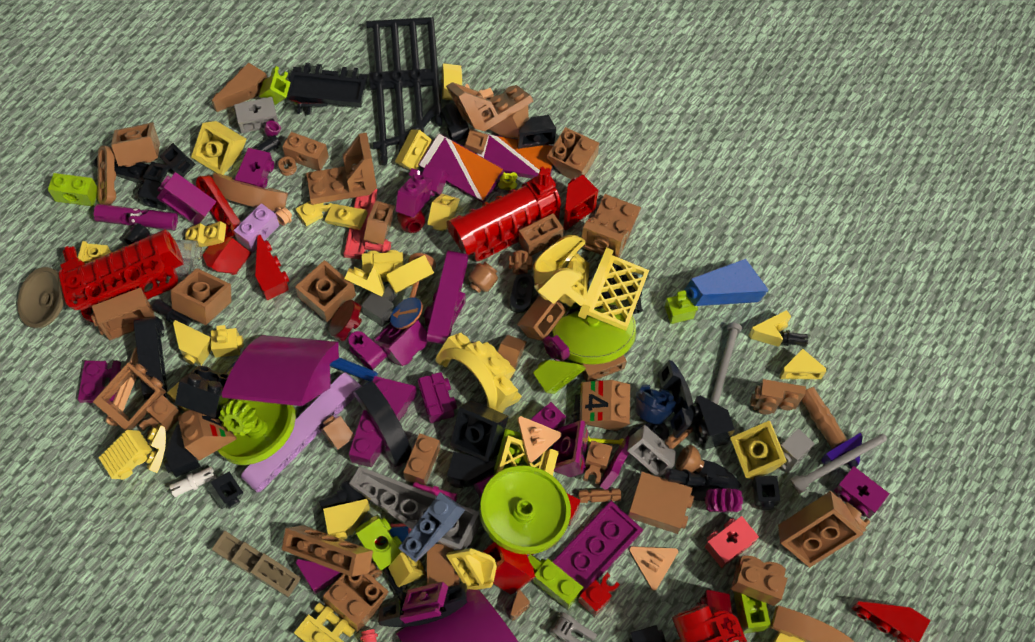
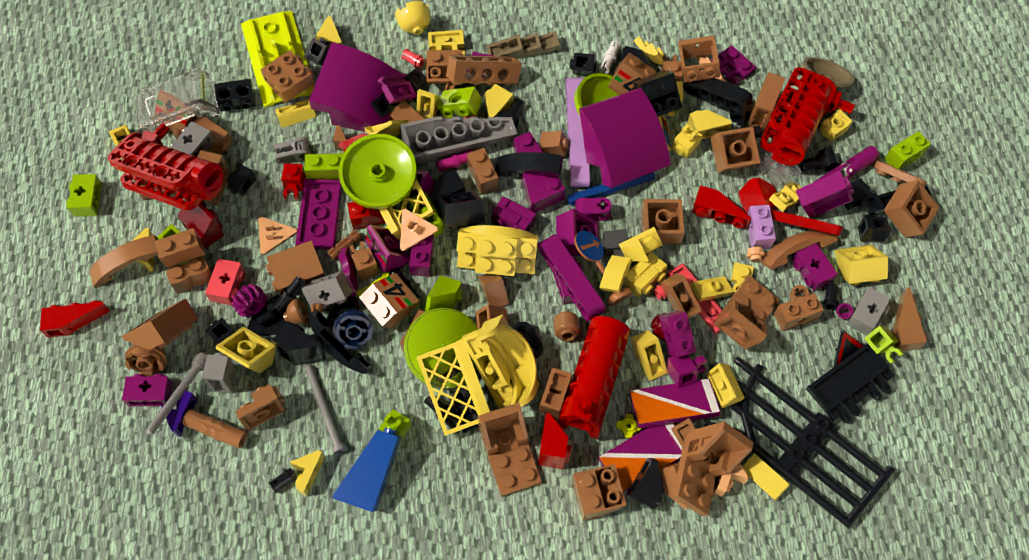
camera: 140 degrees right, 0 degrees up
(125, 454) = (662, 33): light yellow brick -> none
(238, 417) = (616, 88): lime gear -> none
(345, 320) = (626, 210): dark red tile -> none
(432, 526) = (429, 120): sand blue slope -> none
(520, 262) = (550, 359): medium nougat gear -> none
(556, 348) = (455, 301): magenta tile -> none
(803, 367) = (259, 457): light yellow slope -> none

